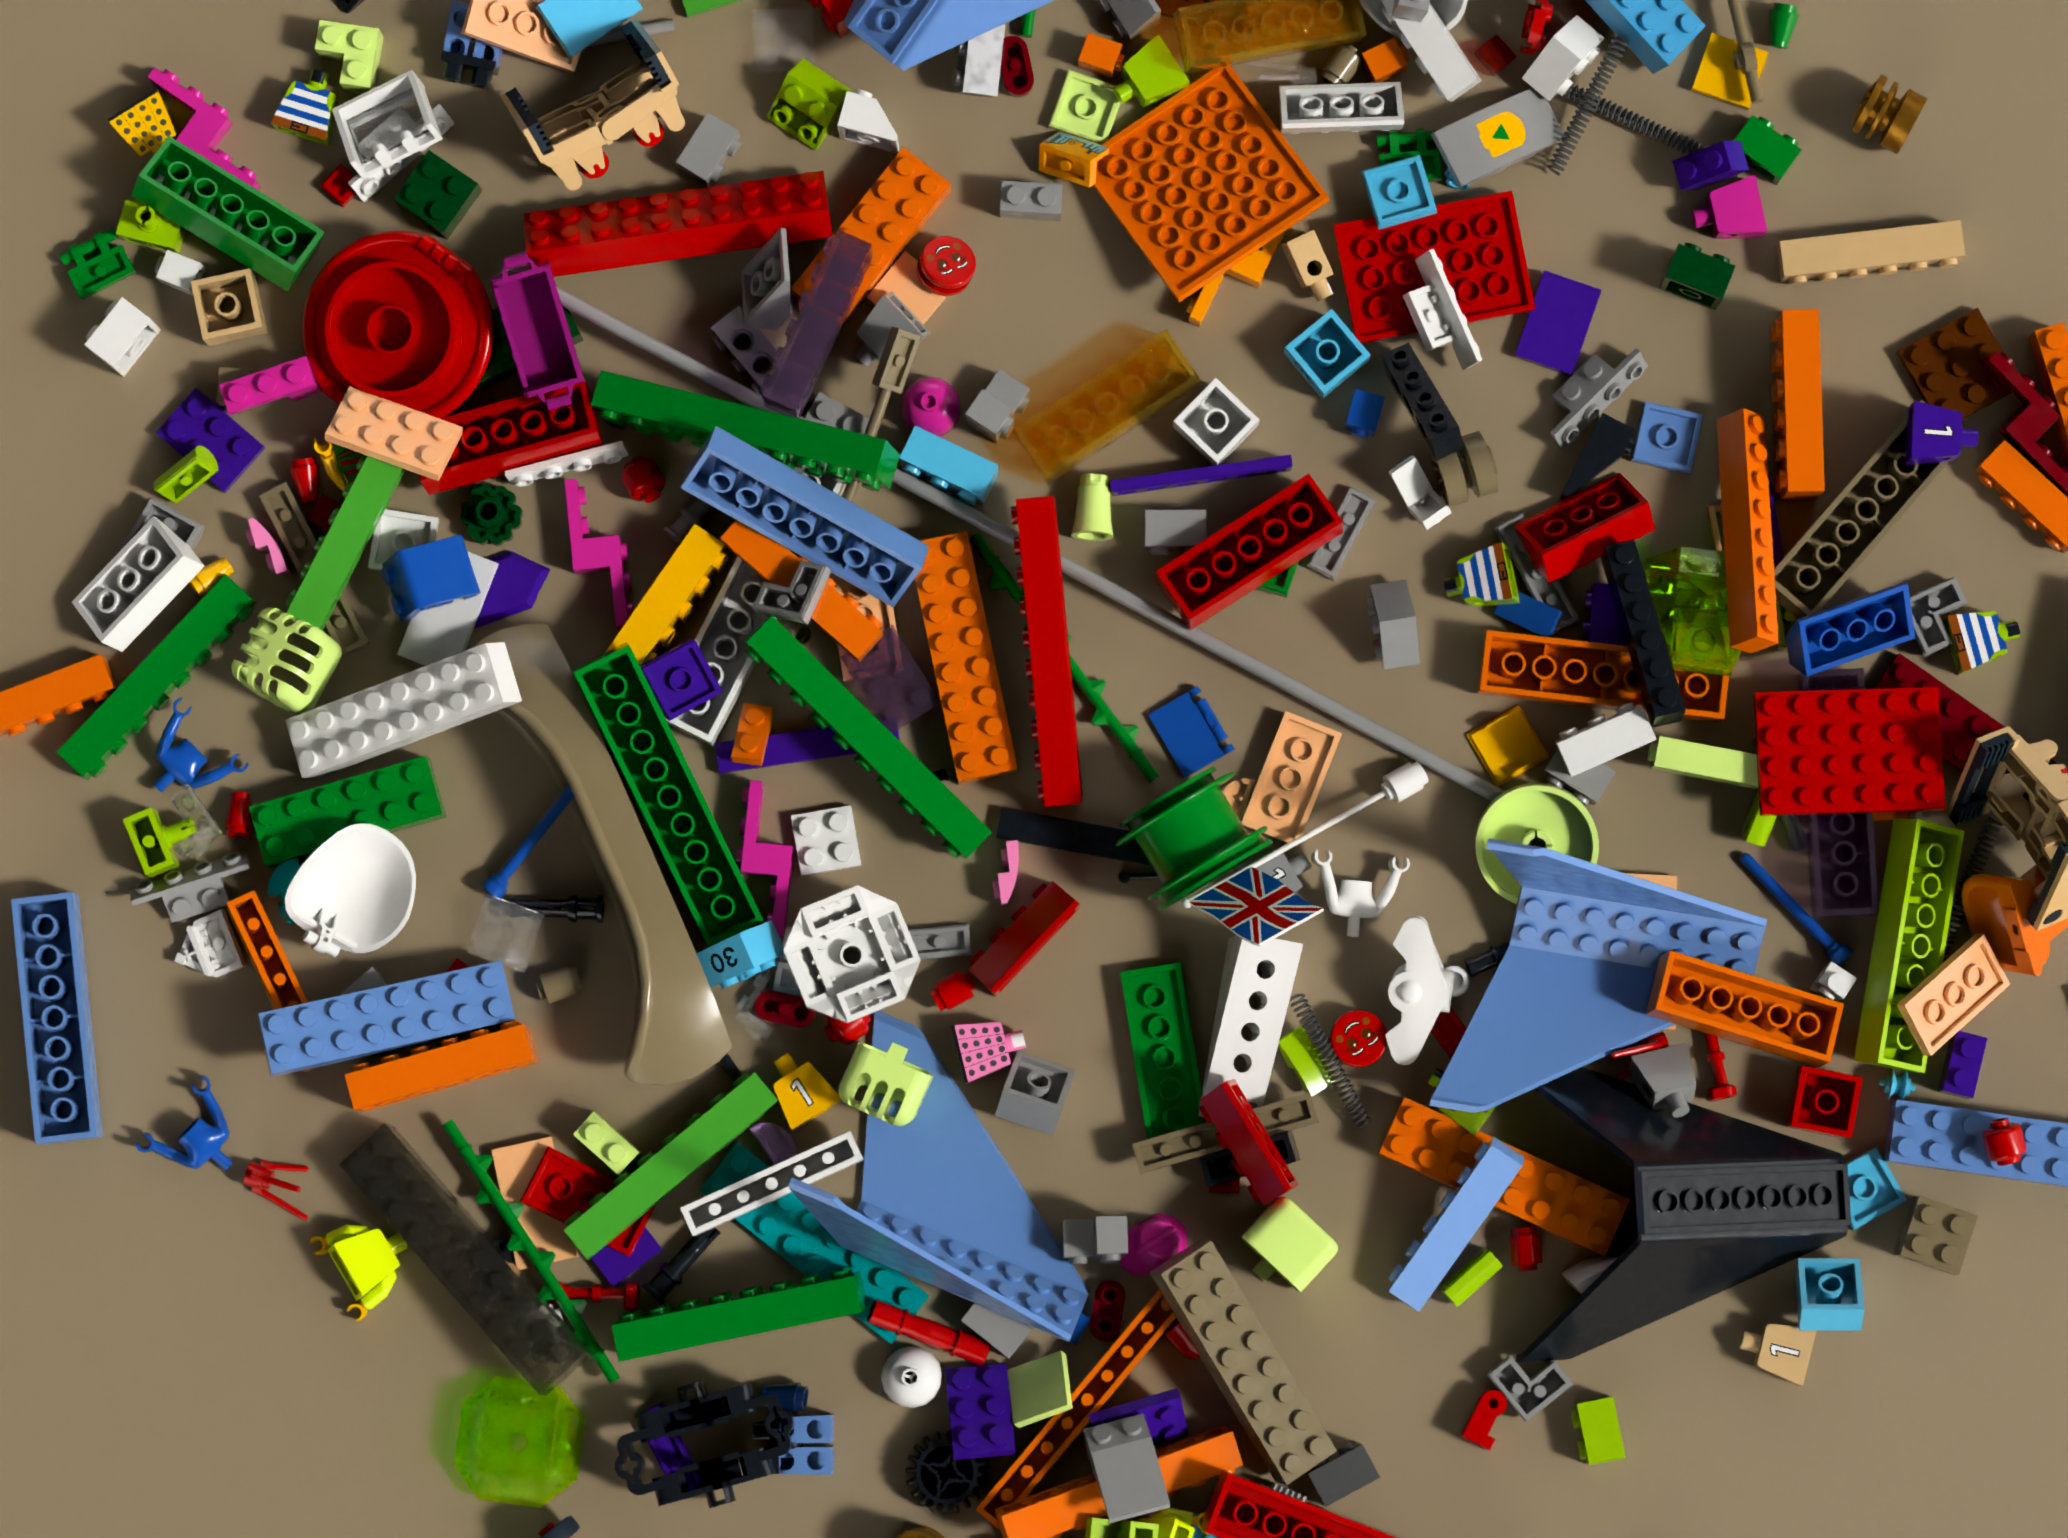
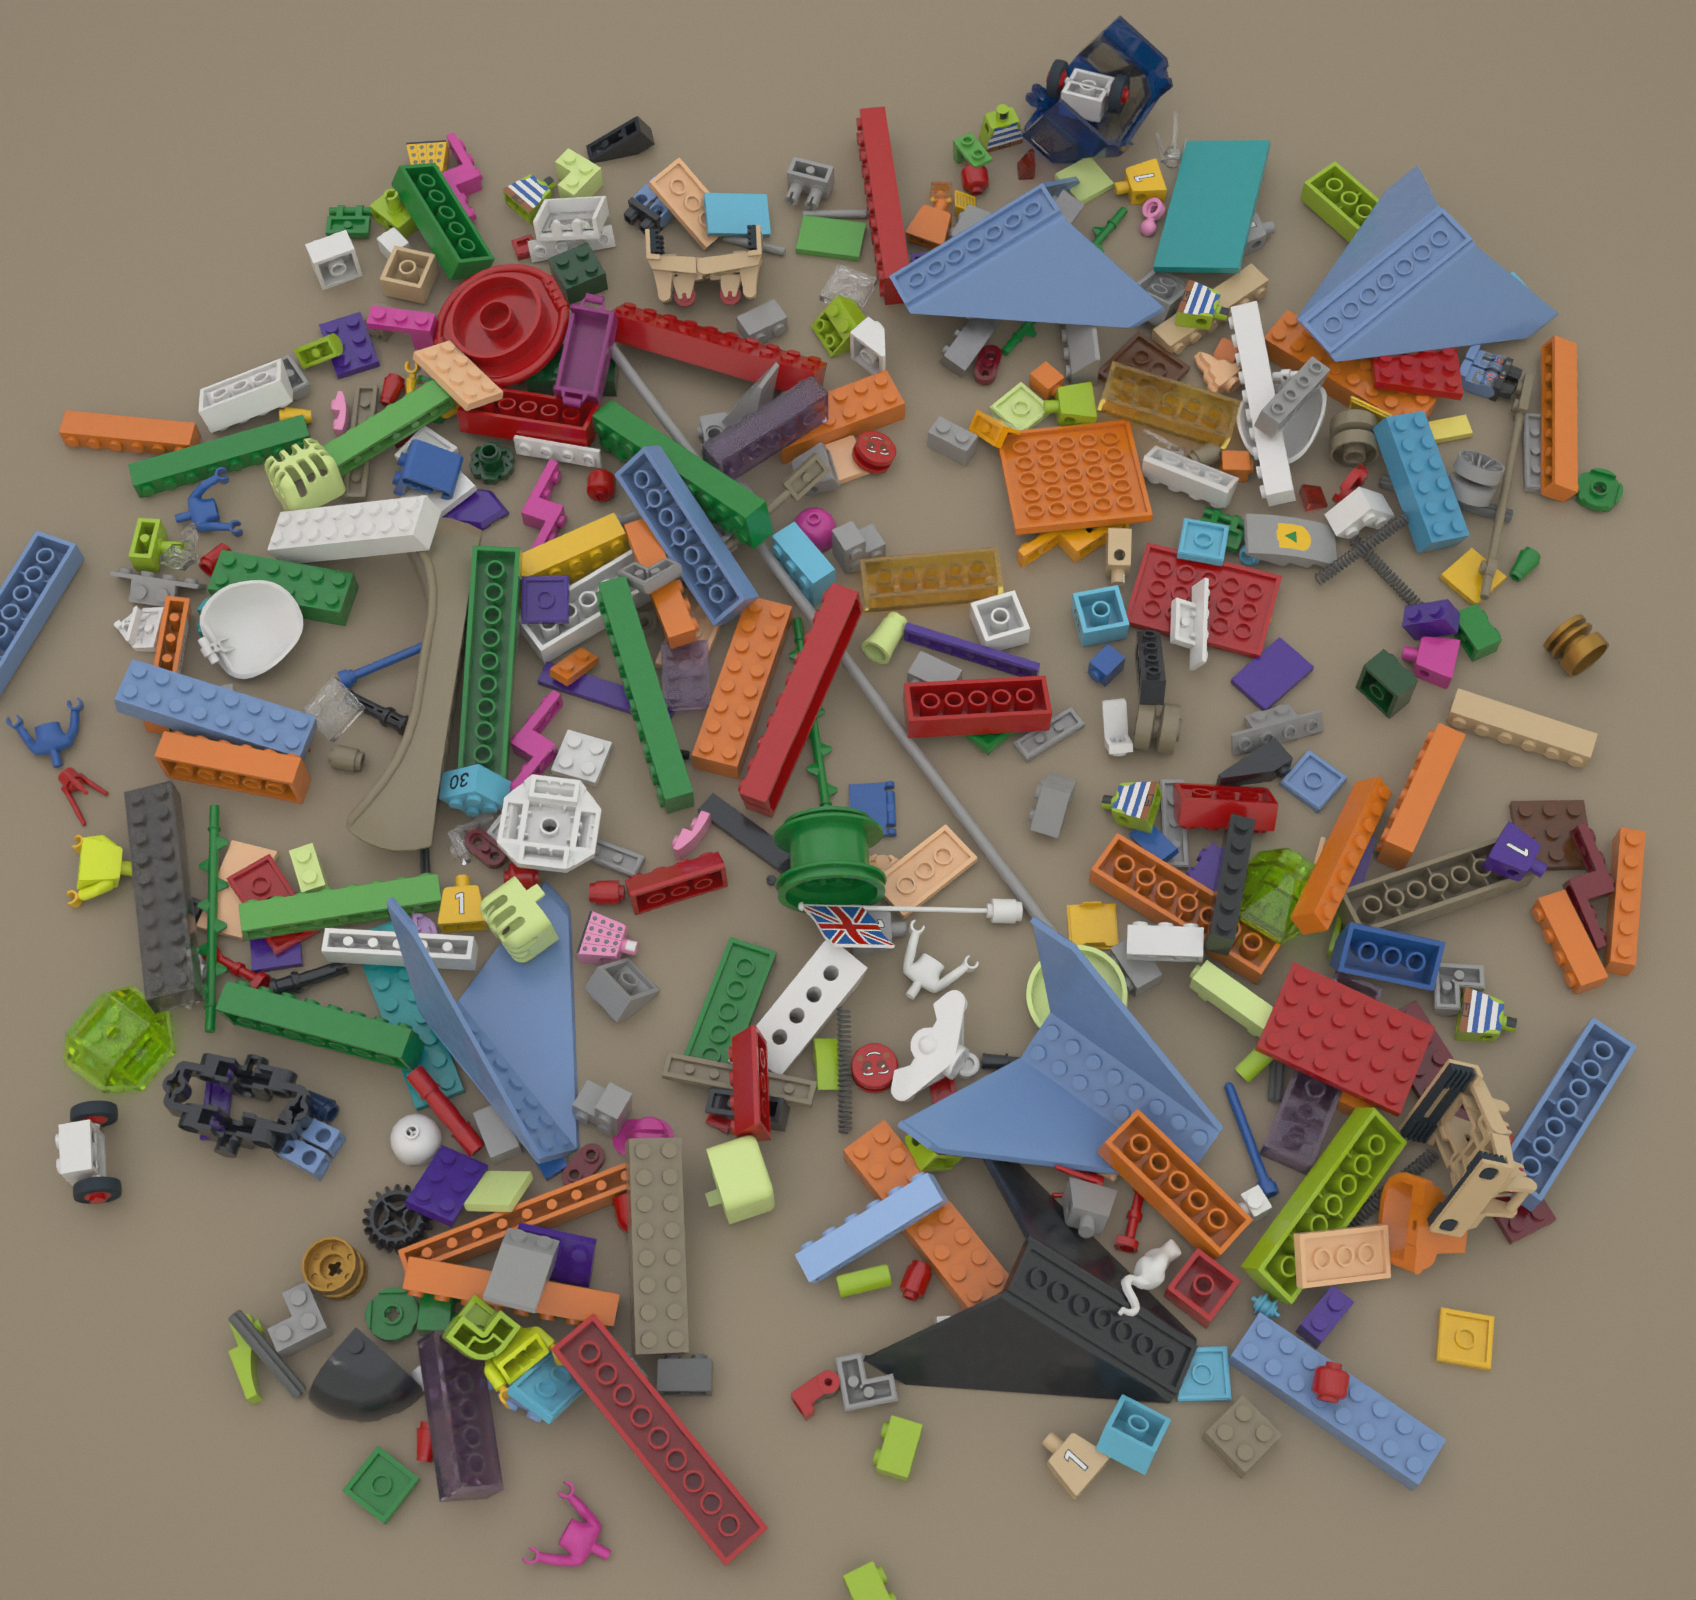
camera: 25 degrees right, 20 degrees down
(1764, 1118) = (1148, 1273): none -> white animal

